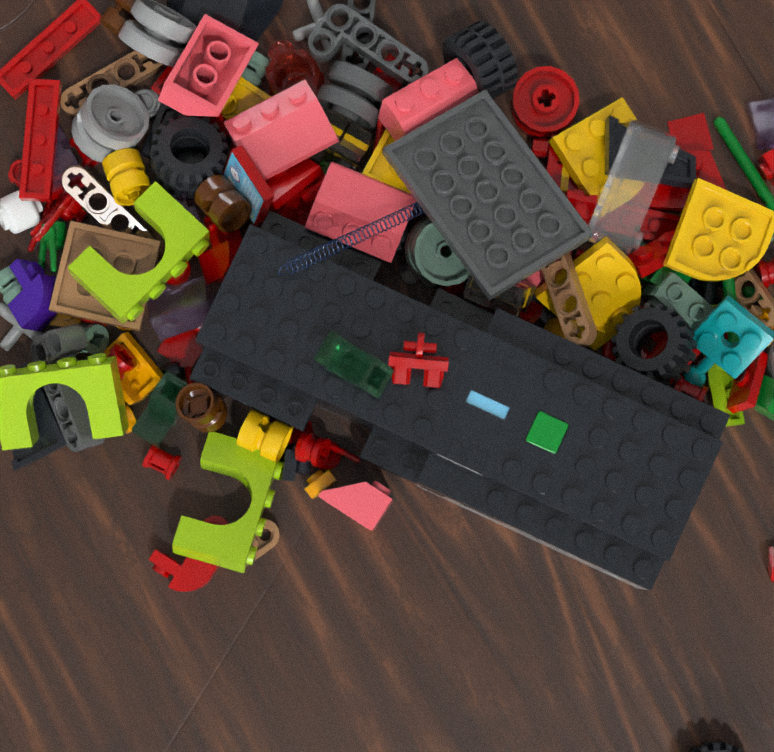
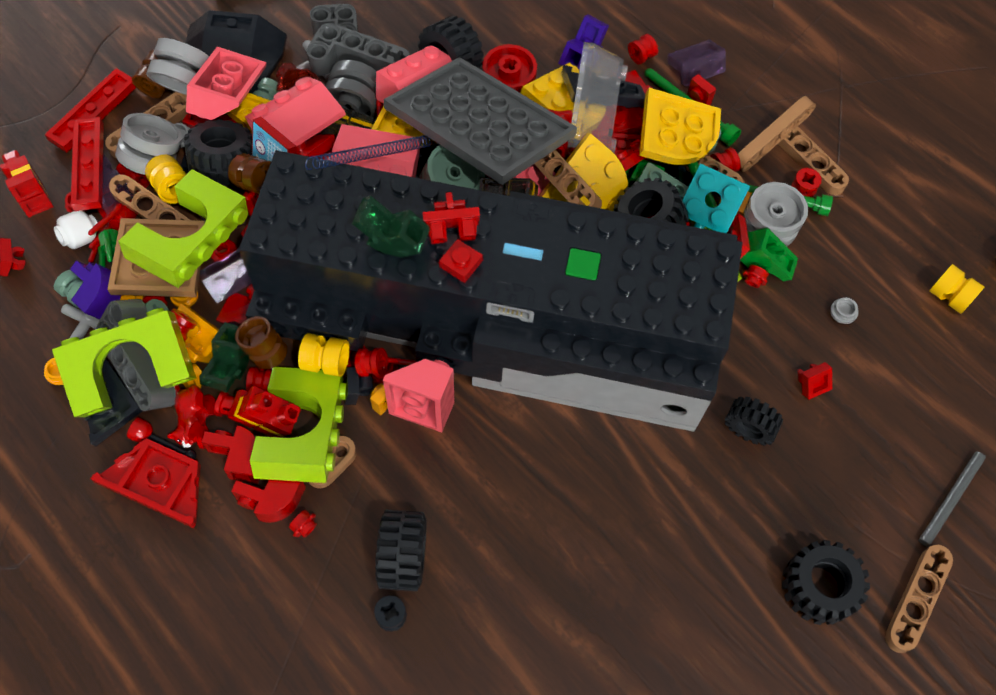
camera: 20 degrees left, 20 degrees down
(67, 468) = (142, 429): none -> hinge
(75, 525) = (157, 480): none -> red wing
(120, 457) = (192, 413): none -> red animal
(165, 516) = (238, 450): none -> red brick
(192, 440) = (258, 378): none -> red wheel
(194, 482) = (264, 412): none -> red hips
(214, 603) = (303, 524): none -> red plate
(287, 708) = (389, 619): none -> black wheel
(305, 659) = (401, 550): none -> black tyre
(419, 408) = (461, 260): none -> red plate
(646, 76) = (590, 31): none -> dark purple brick
(699, 599) = (754, 420): none -> black tyre
(719, 90) = (642, 49): none -> red wheel
(759, 426) = (755, 276): none -> red plate

